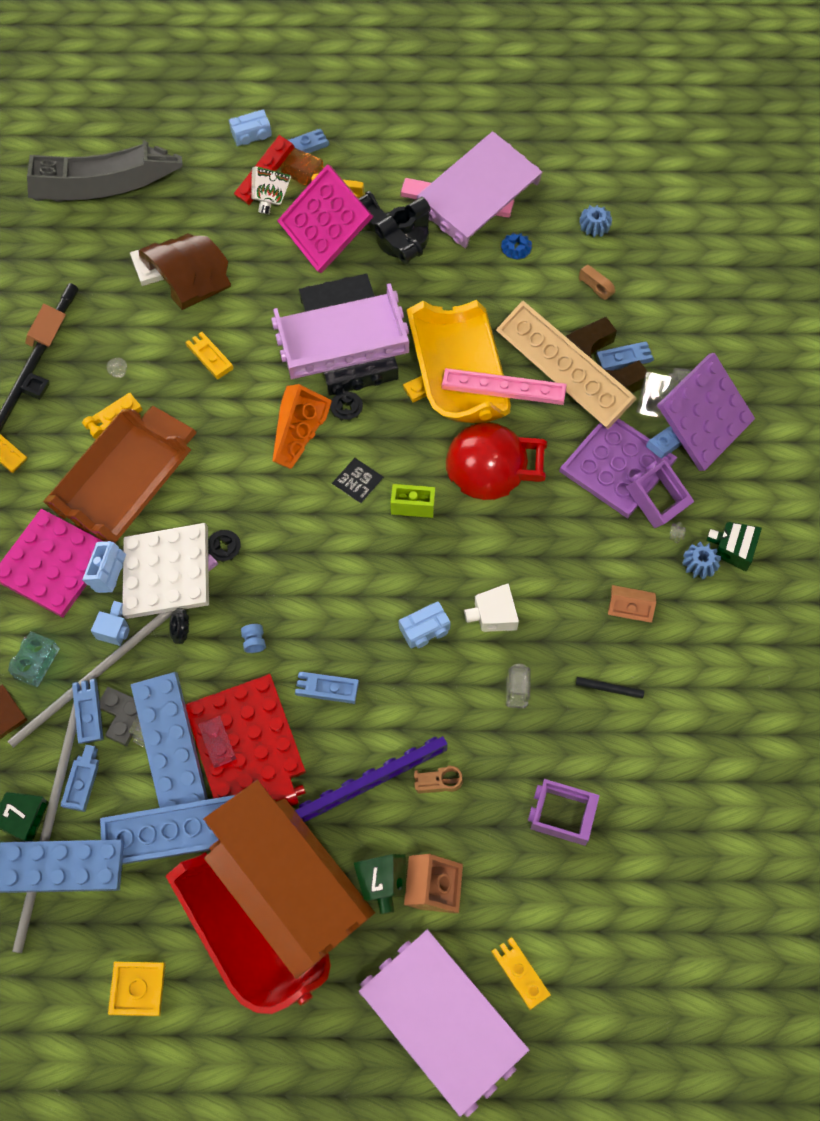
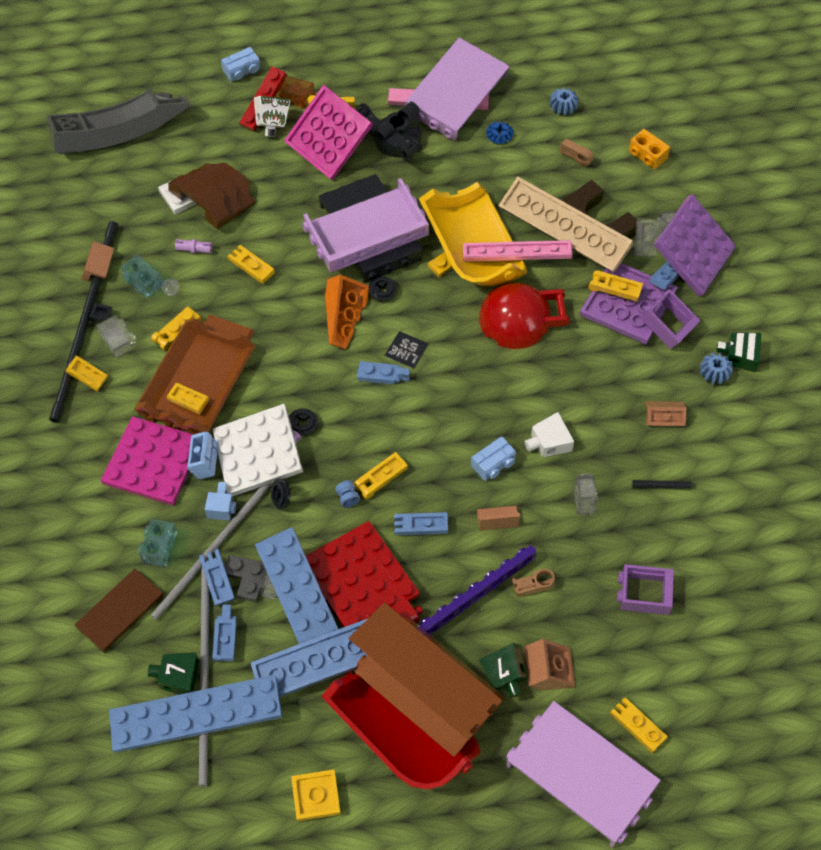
camera: 10 degrees left, 5 degrees down
(44, 414) = (116, 336): none -> clear brick
(89, 350) = (141, 276): none -> clear light blue brick
(104, 498) = (187, 398): none -> yellow plate
(152, 325) = (193, 246): none -> lavender pin
(217, 741) = (338, 581): clear pink plate -> none
(295, 623) = (381, 475): none -> yellow plate
(310, 141) = (298, 68): medium blue hinge -> none
(324, 503) = (382, 373): none -> medium blue hinge
(412, 500) = (460, 357): lime brick -> none
(414, 695) = (498, 518): none -> nougat panel
(606, 445) = (615, 285): none -> yellow plate
(623, 356) = (614, 210): medium blue hinge -> none
(677, 532) = (691, 348): clear plate -> none
(679, 290) = (649, 149): none -> light orange brick

